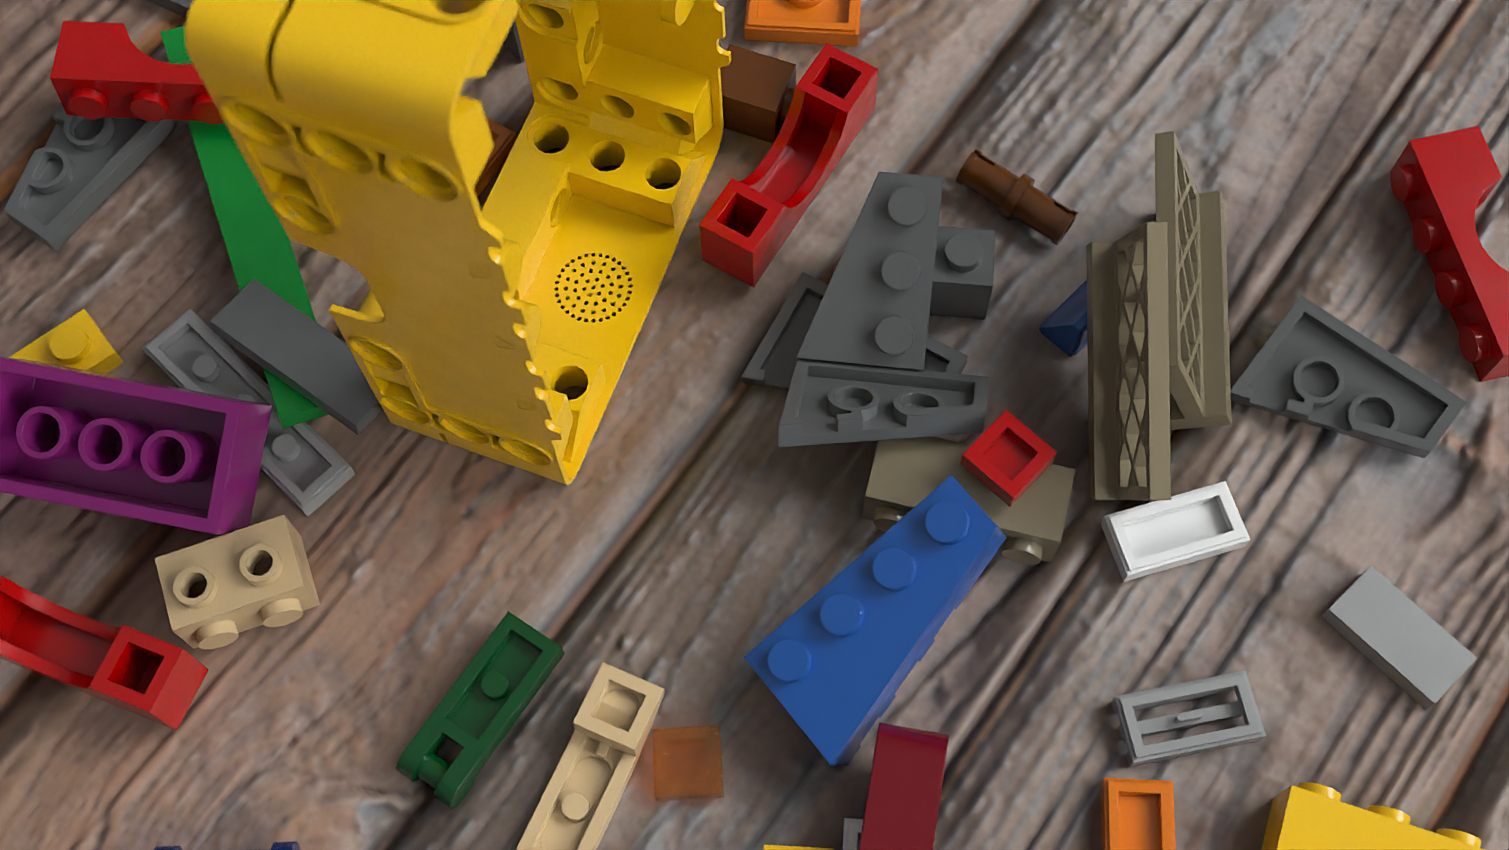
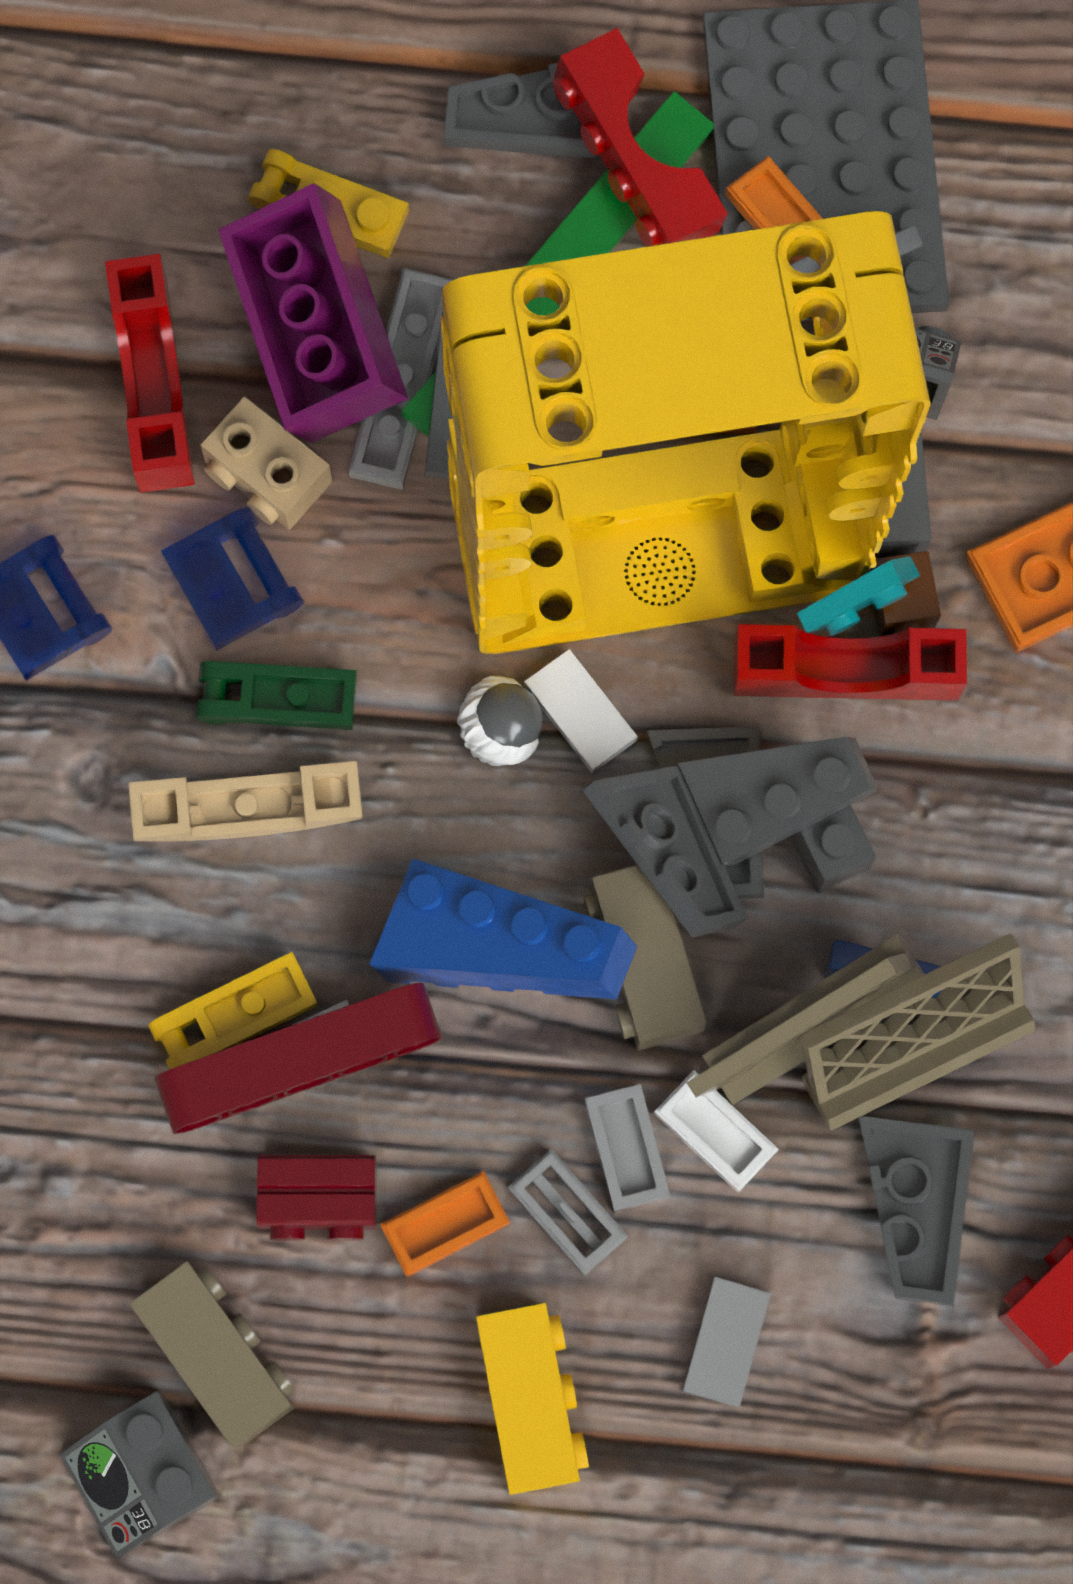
camera: 55 degrees right, 10 degrees up
(328, 706) = (215, 586): none -> clear blue plate
(647, 506) = (500, 721): none -> hair
(683, 428) = (580, 711): none -> white tile
(687, 763) = (324, 866): clear orange tile -> none
(743, 85) = (879, 586): none -> teal plate
(1008, 458) = (677, 966): red plate -> none
(1016, 196) = (938, 859): reddish brown pin -> none
(1150, 624) = (627, 1148): none -> light grey tile

